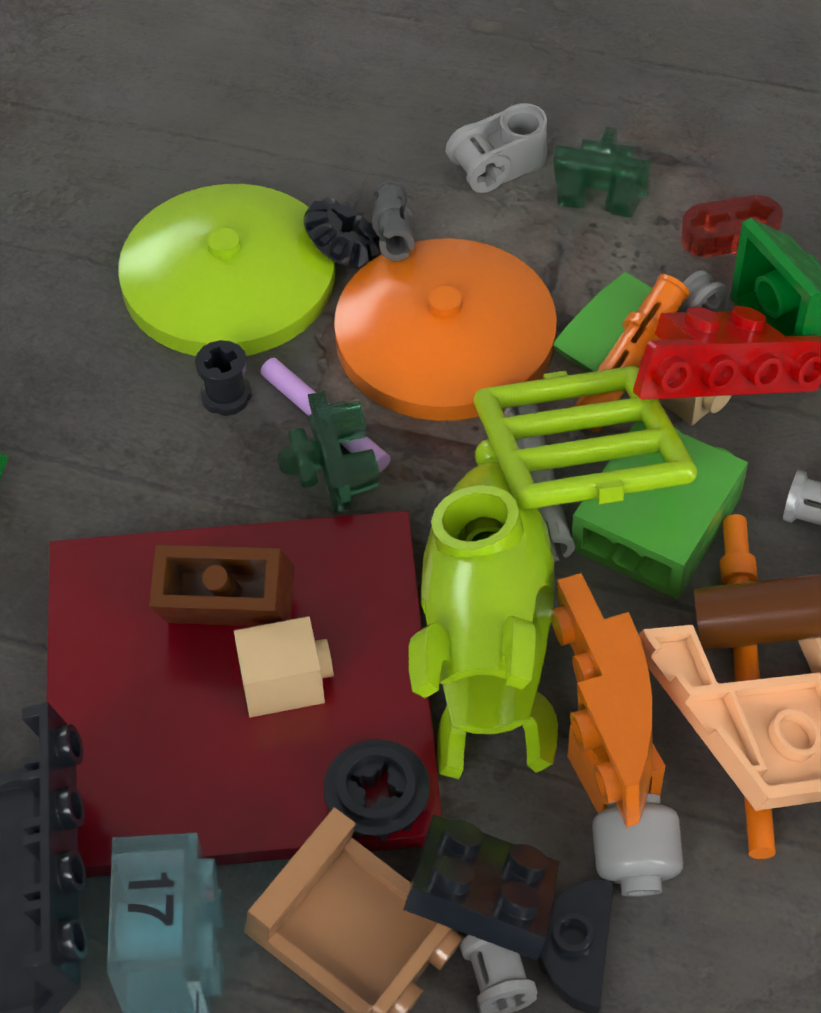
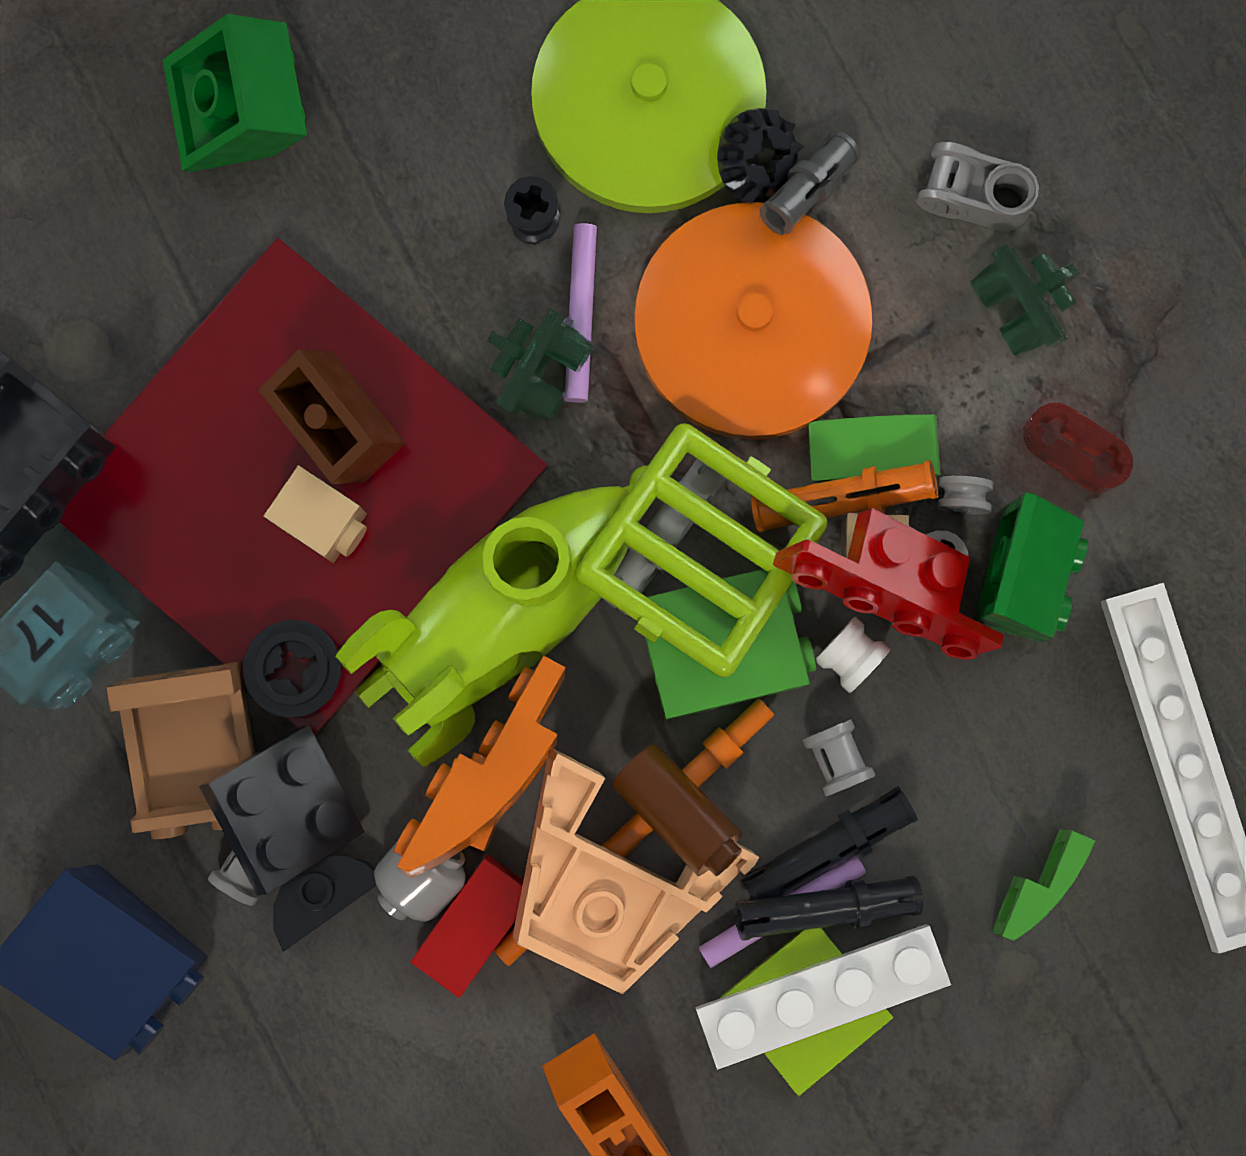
camera: 45 degrees right, 30 degrees up
(718, 847) = (471, 927): none -> red slope
(751, 436) = (852, 655): none -> white wheel

